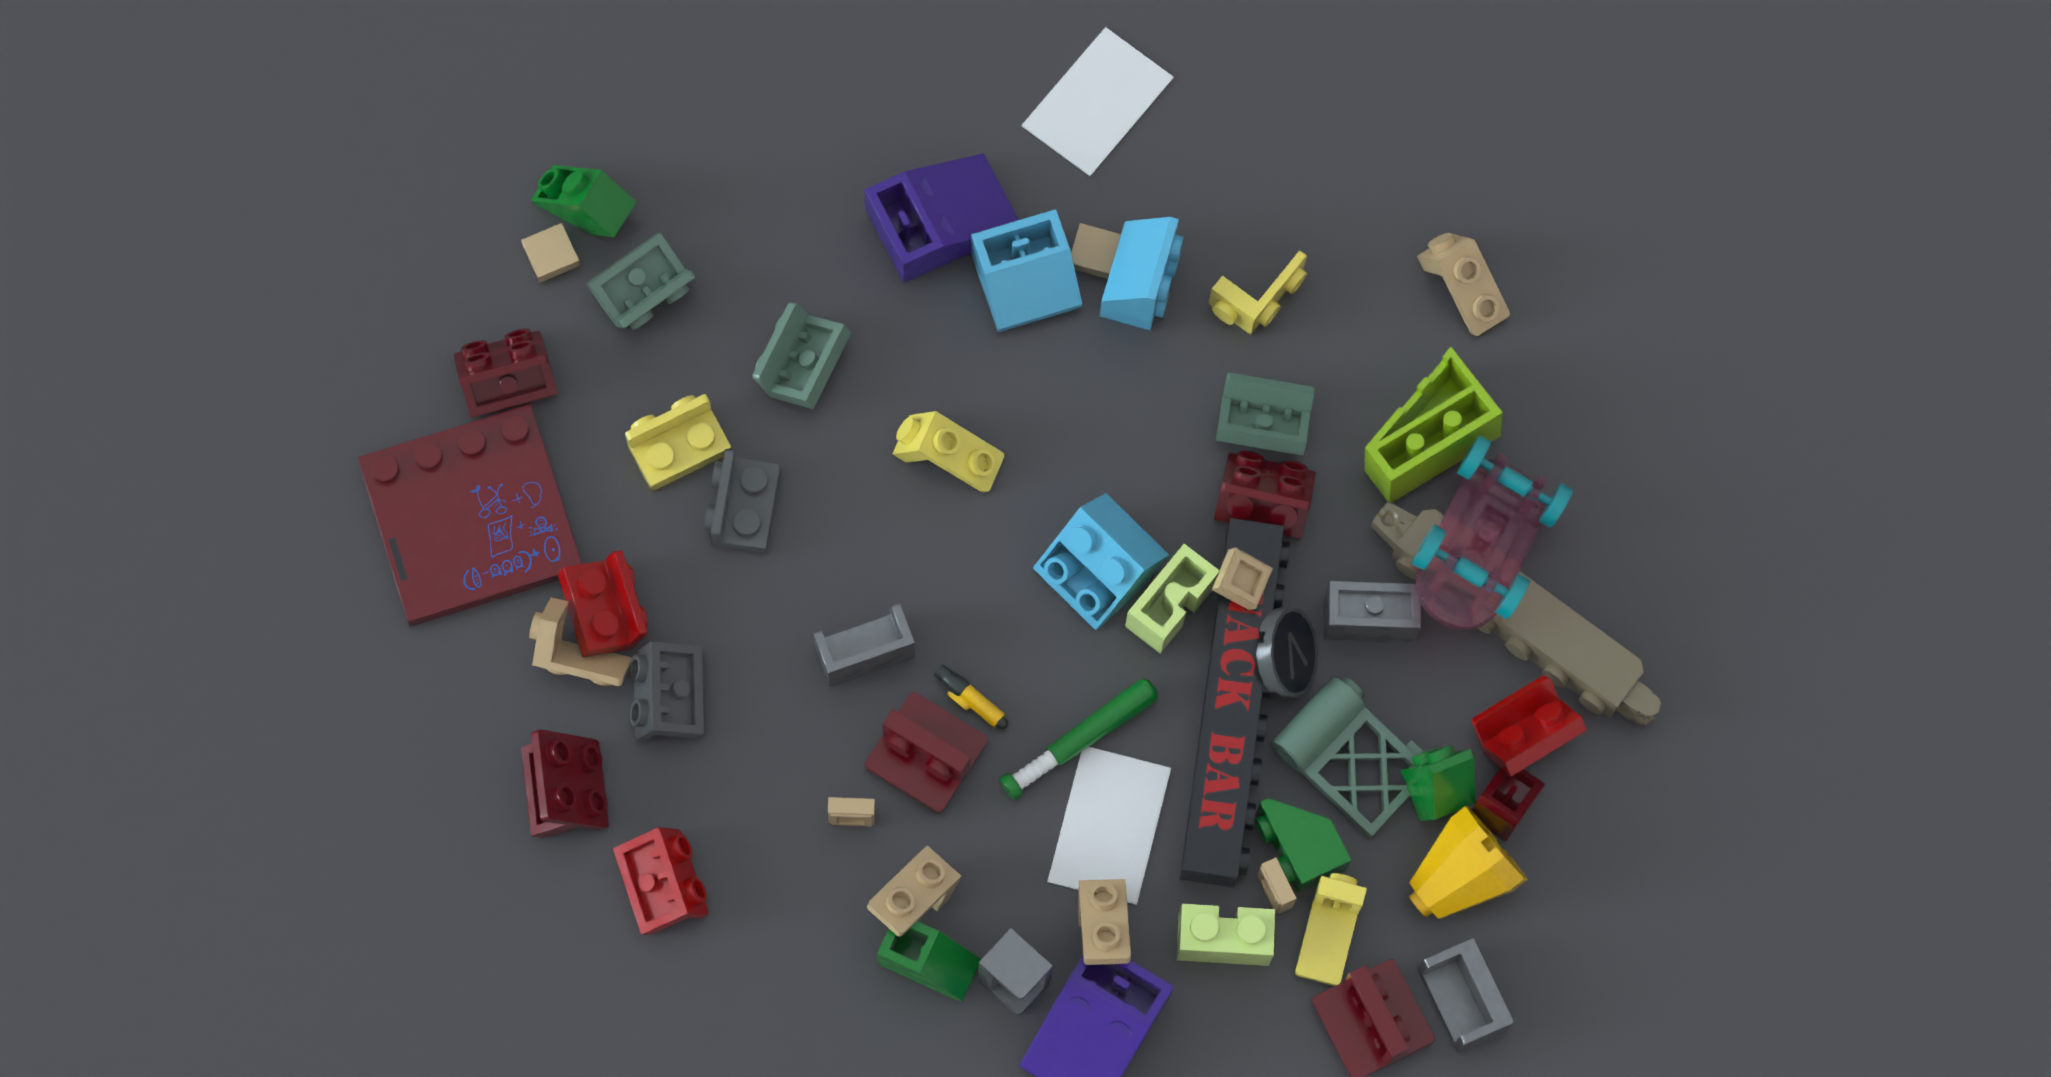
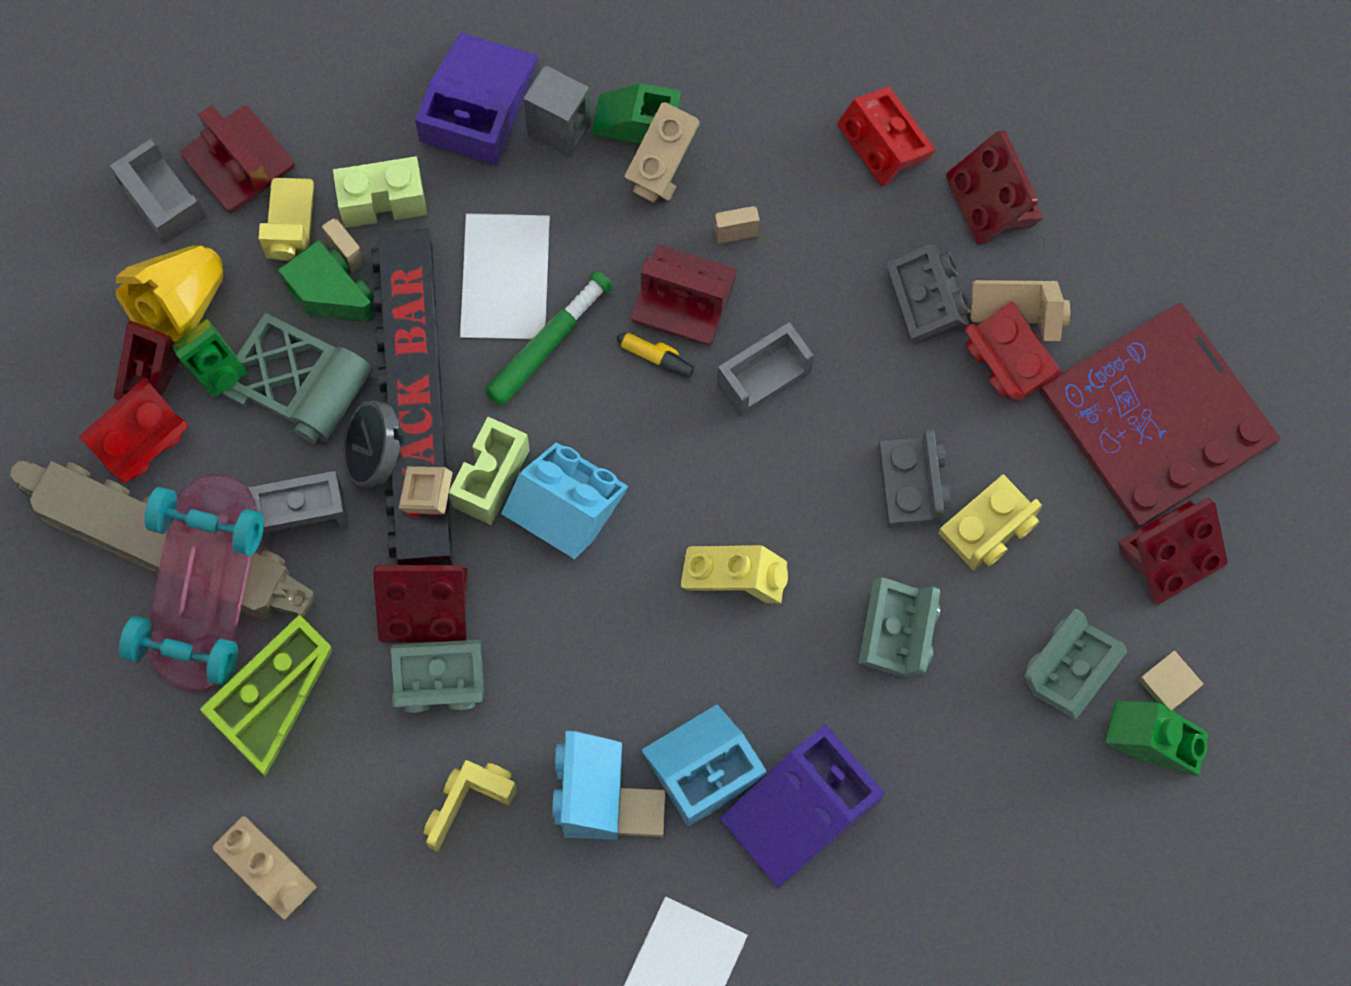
camera: 170 degrees right, 0 degrees up
(1104, 921) = (488, 163): tan bracket -> none

